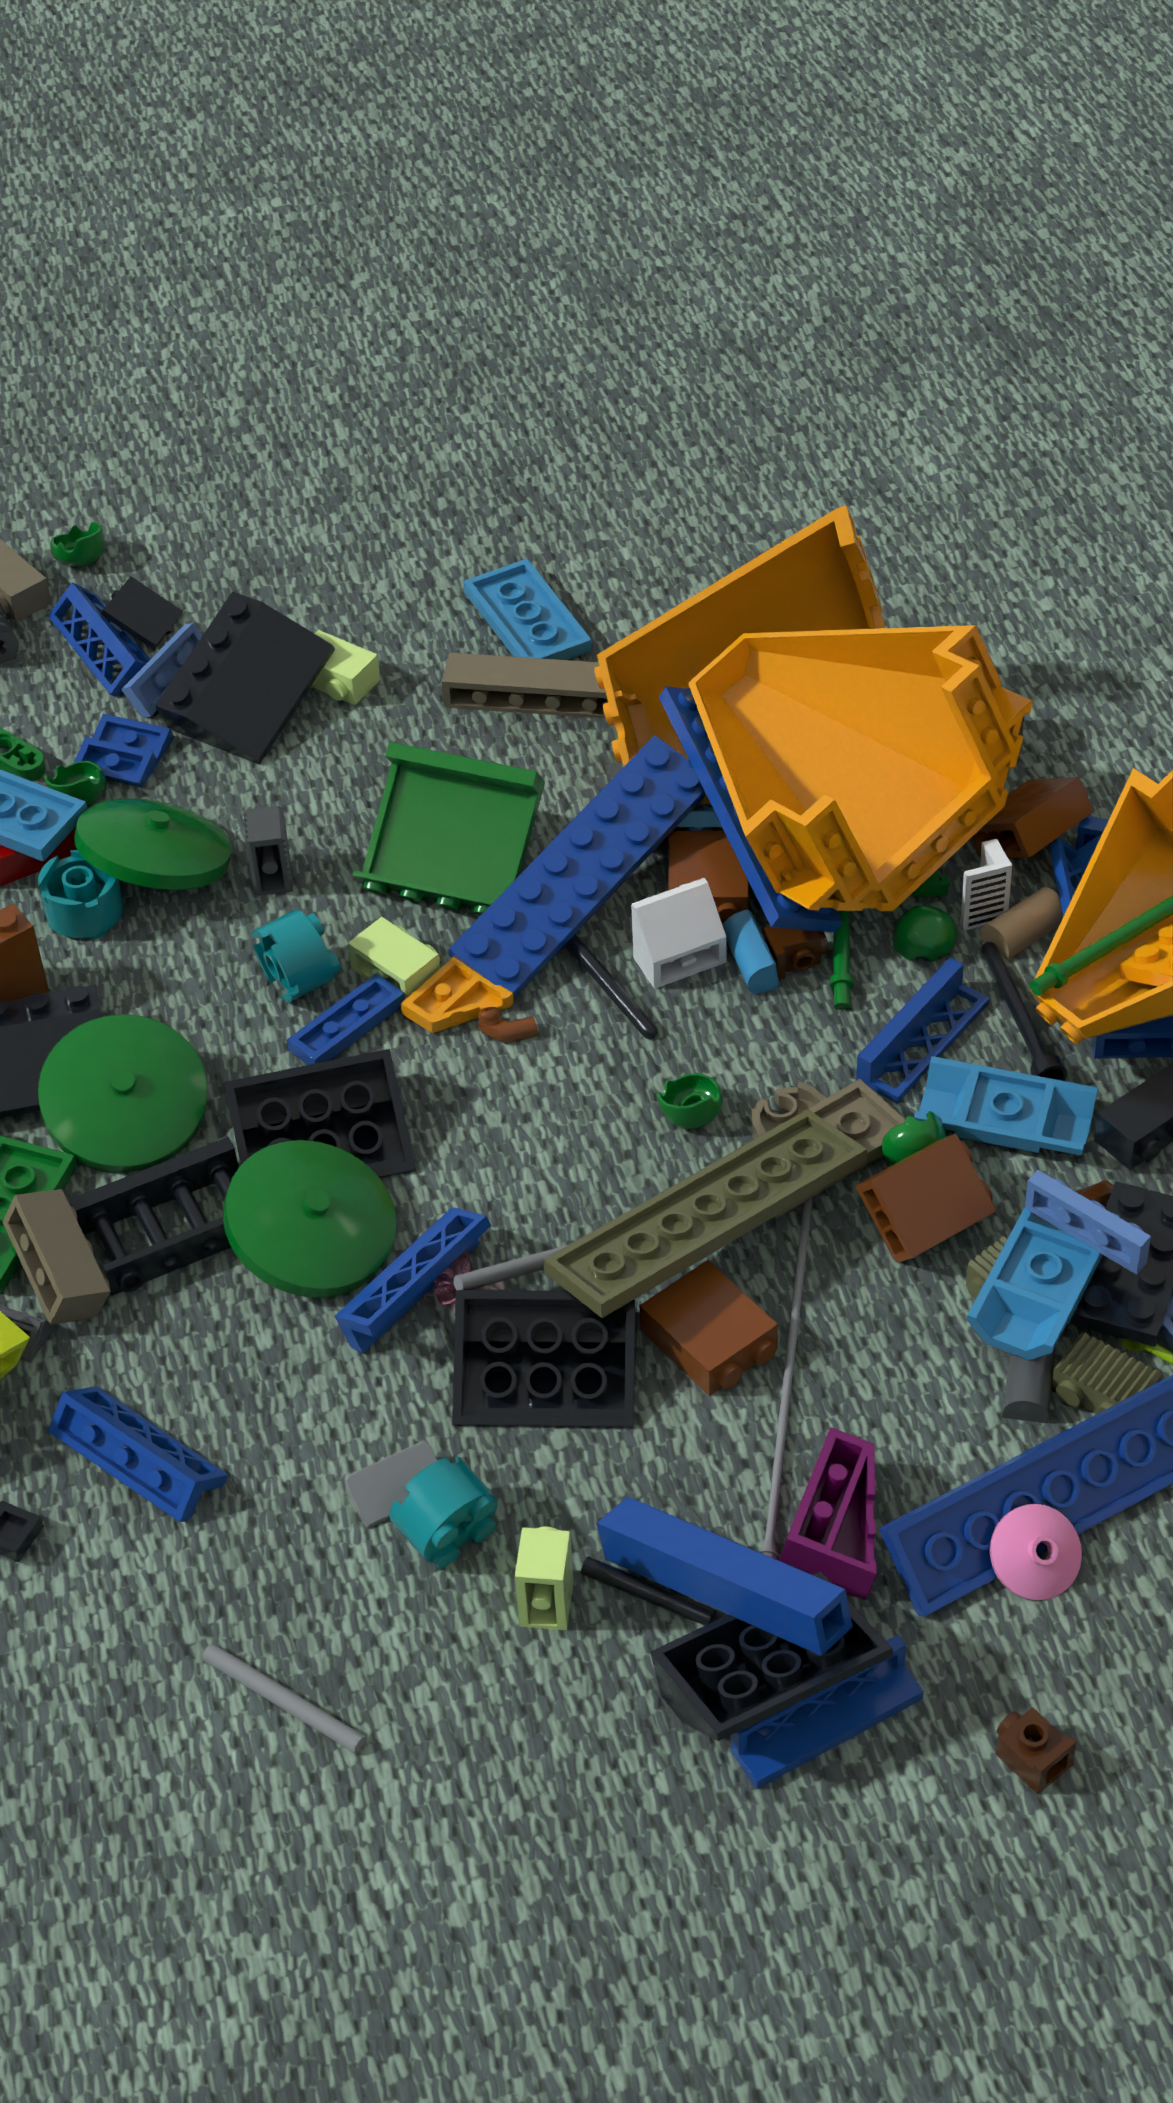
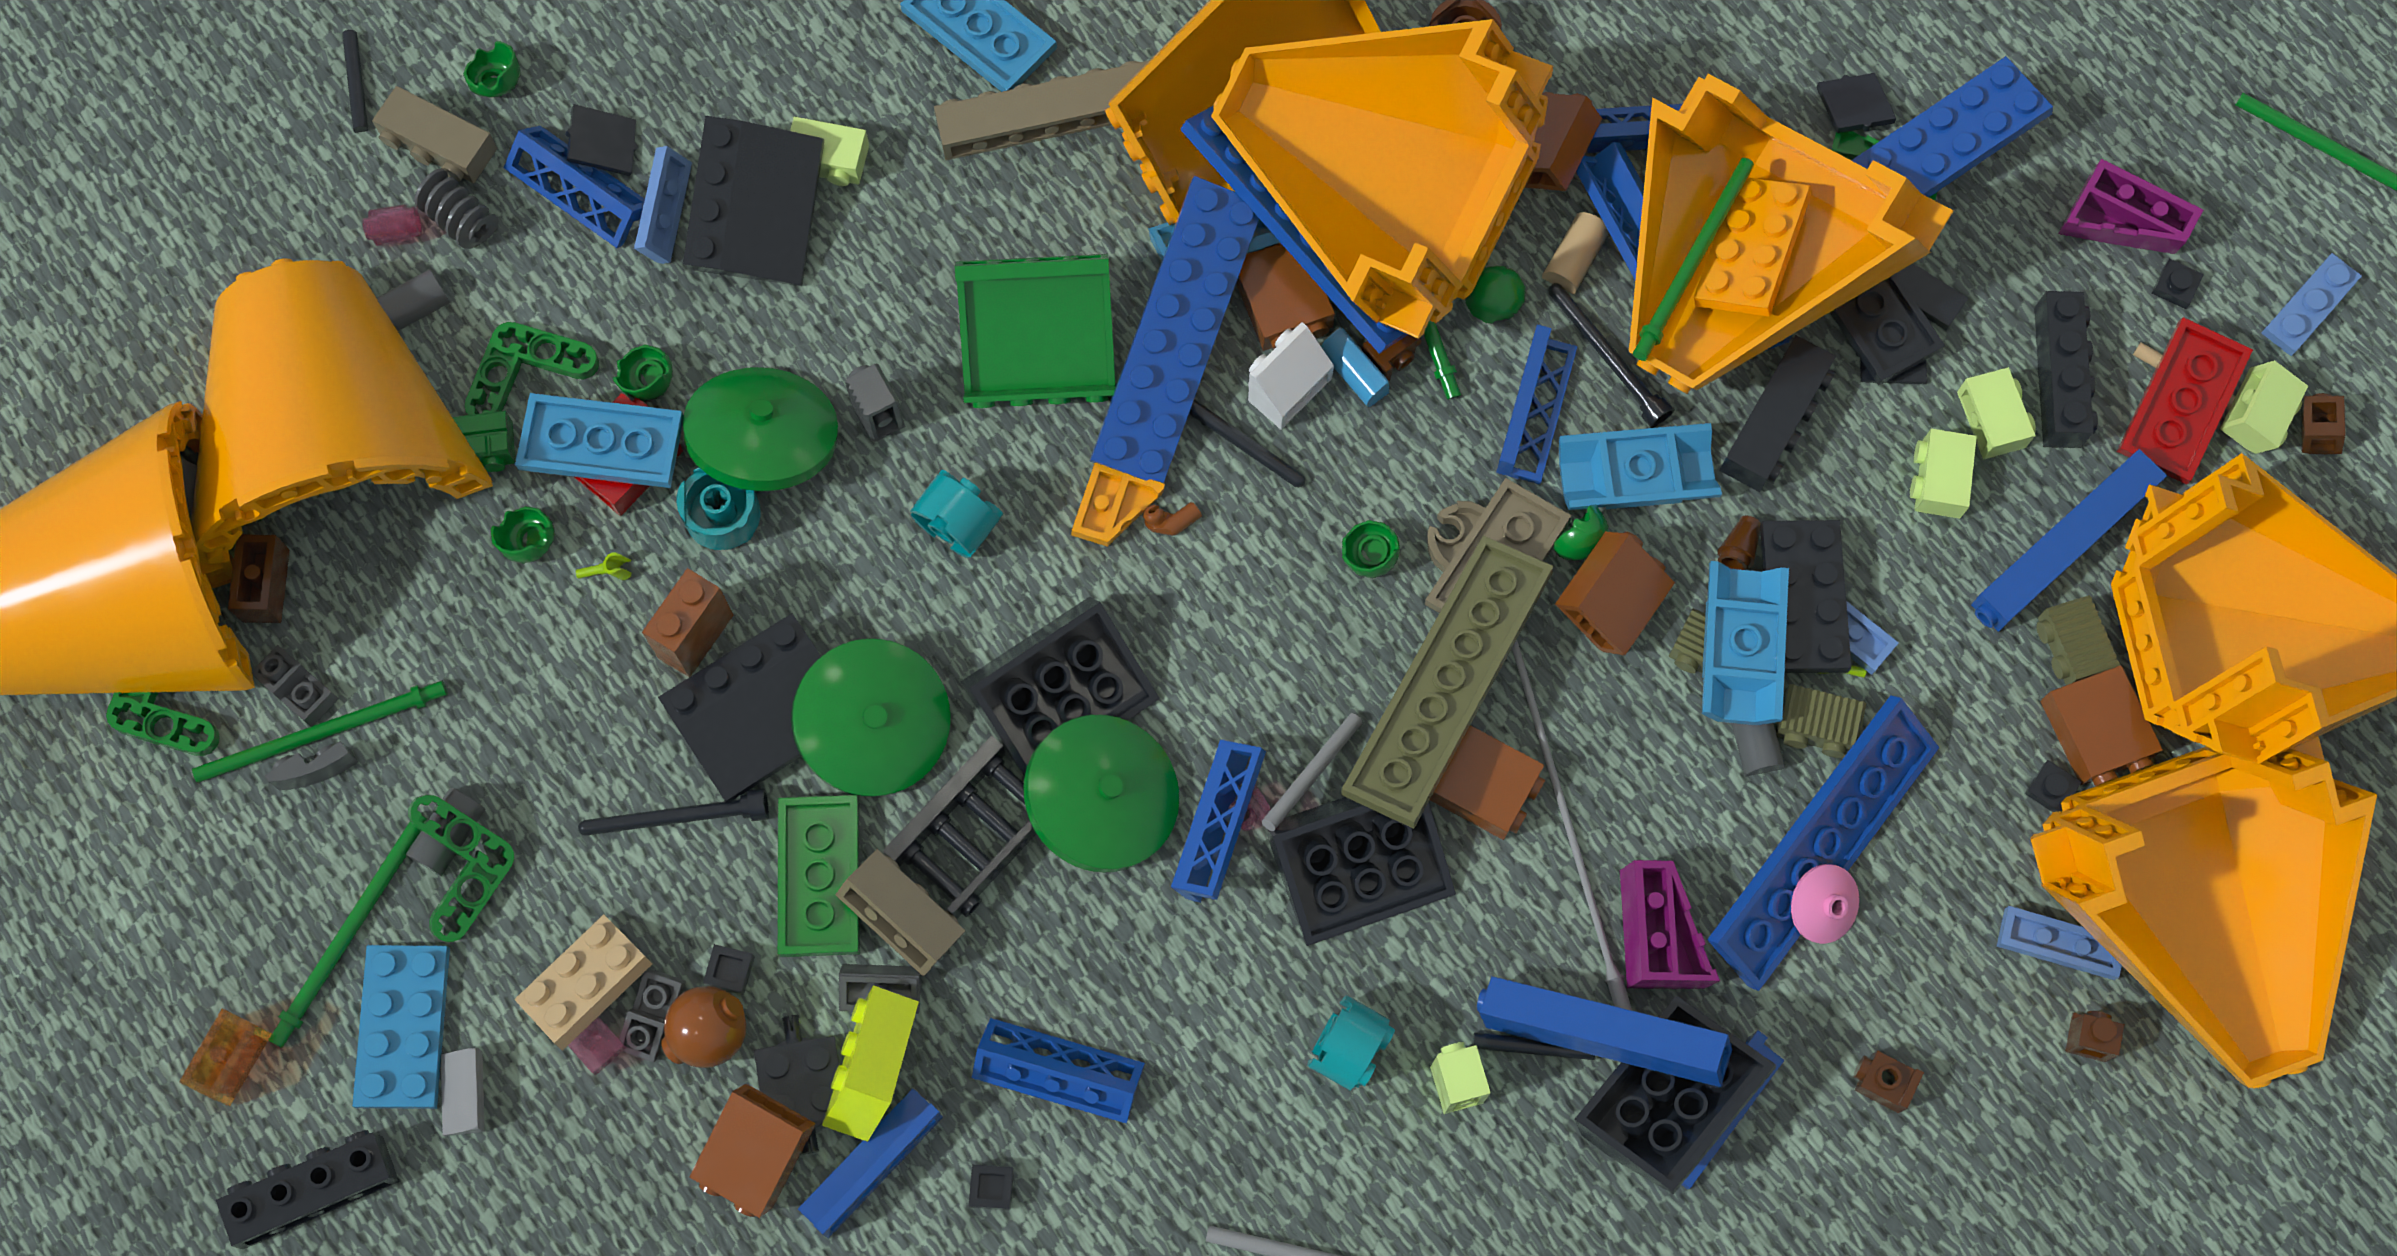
camera: 25 degrees left, 25 degrees up
(126, 748) = (665, 313): blue slope -> none
(346, 1021) = (1028, 563): blue plate -> none
(379, 1484) = (1290, 1024): light grey slope -> none
(393, 955) = (1043, 482): yellowish green brick -> none
(986, 888) = (1543, 229): white panel -> none
(1087, 1221) = (1773, 591): medium blue plate -> none

